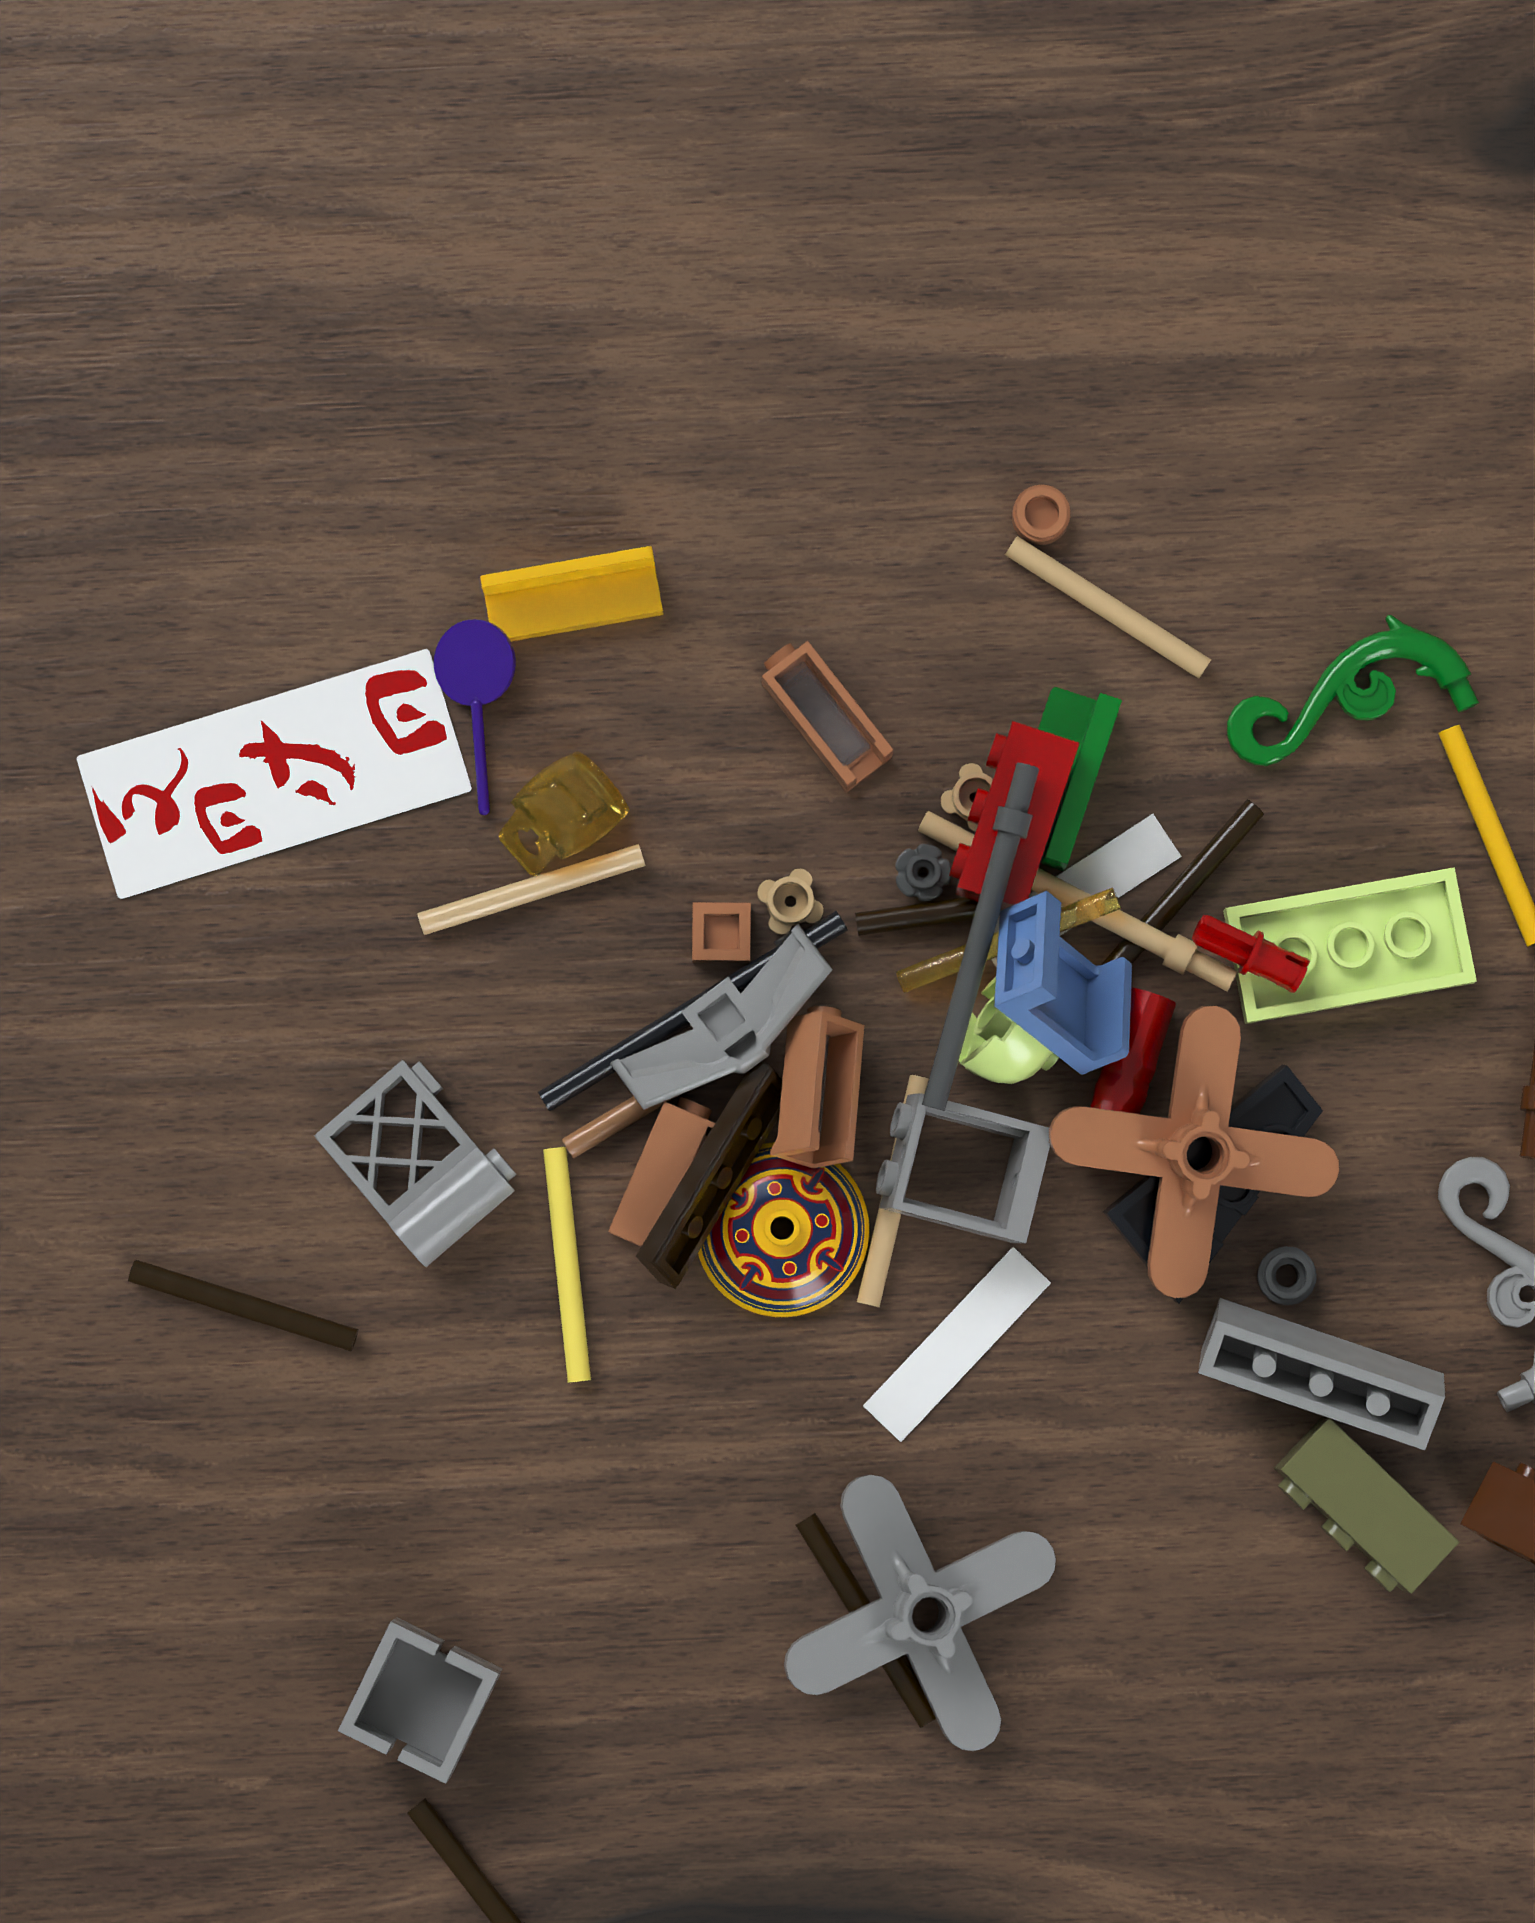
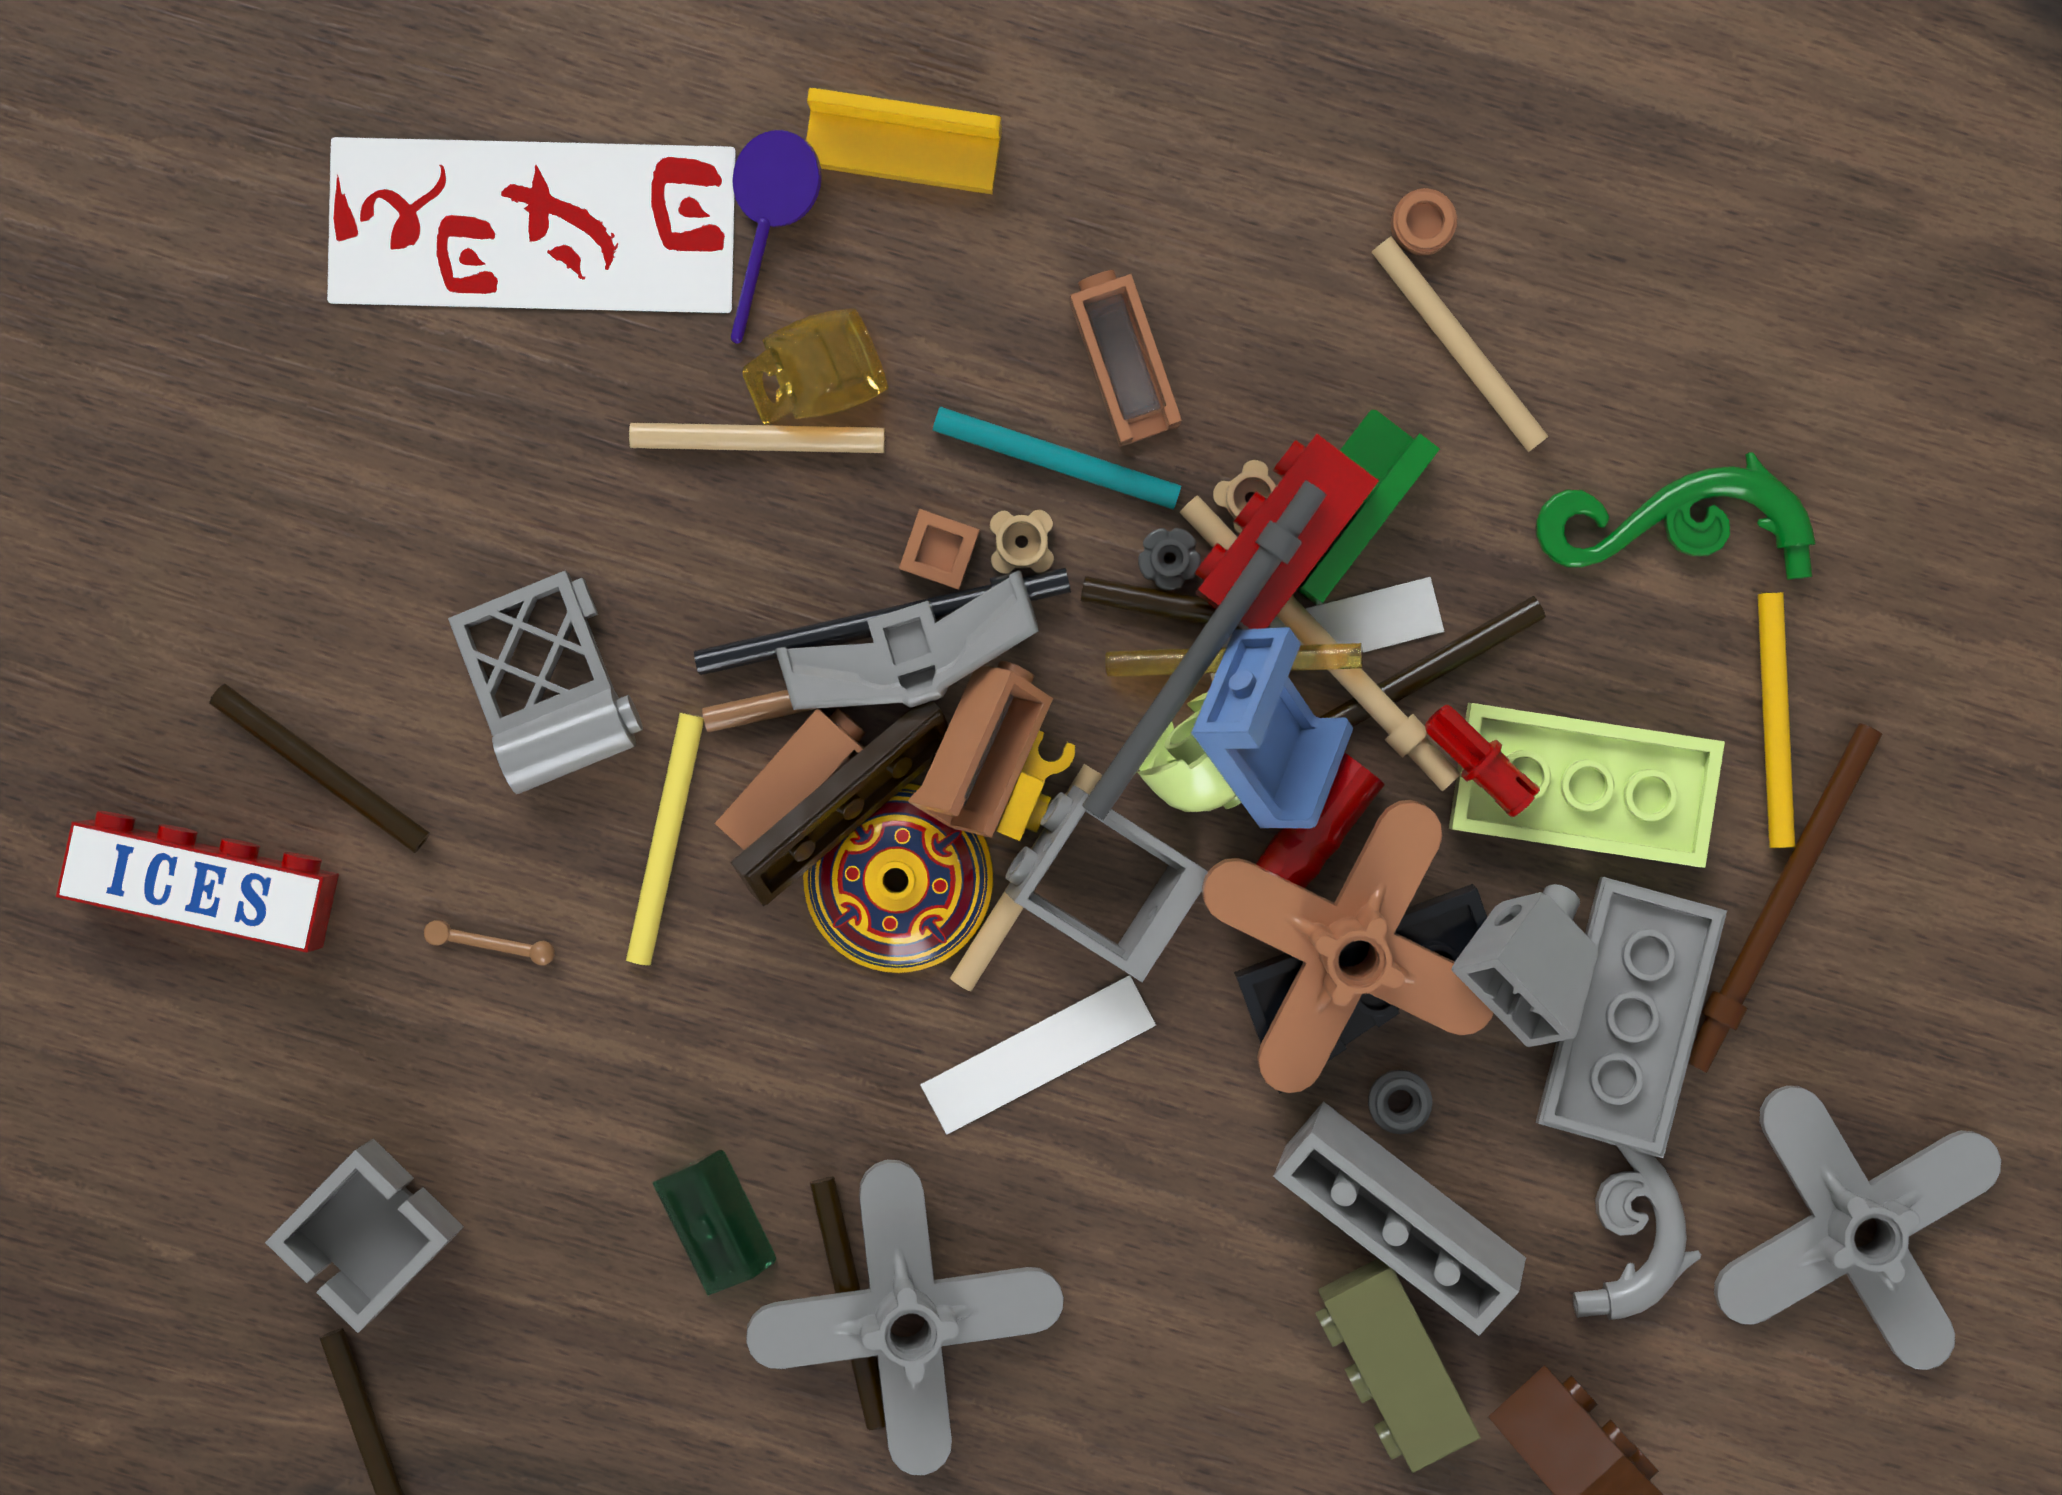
camera: 20 degrees right, 5 degrees up
(170, 1441) = (198, 883): none -> brick
(395, 1415) = (439, 932): none -> medium nougat hinge
(723, 1589) = (715, 1222): none -> clear green slope
(796, 819) = (1056, 458): none -> teal piece
(872, 1124) = (1026, 801): none -> yellow plate
(1357, 1114) = (1532, 965): none -> light grey torso
(1460, 1133) = (1638, 1020): none -> light grey tile

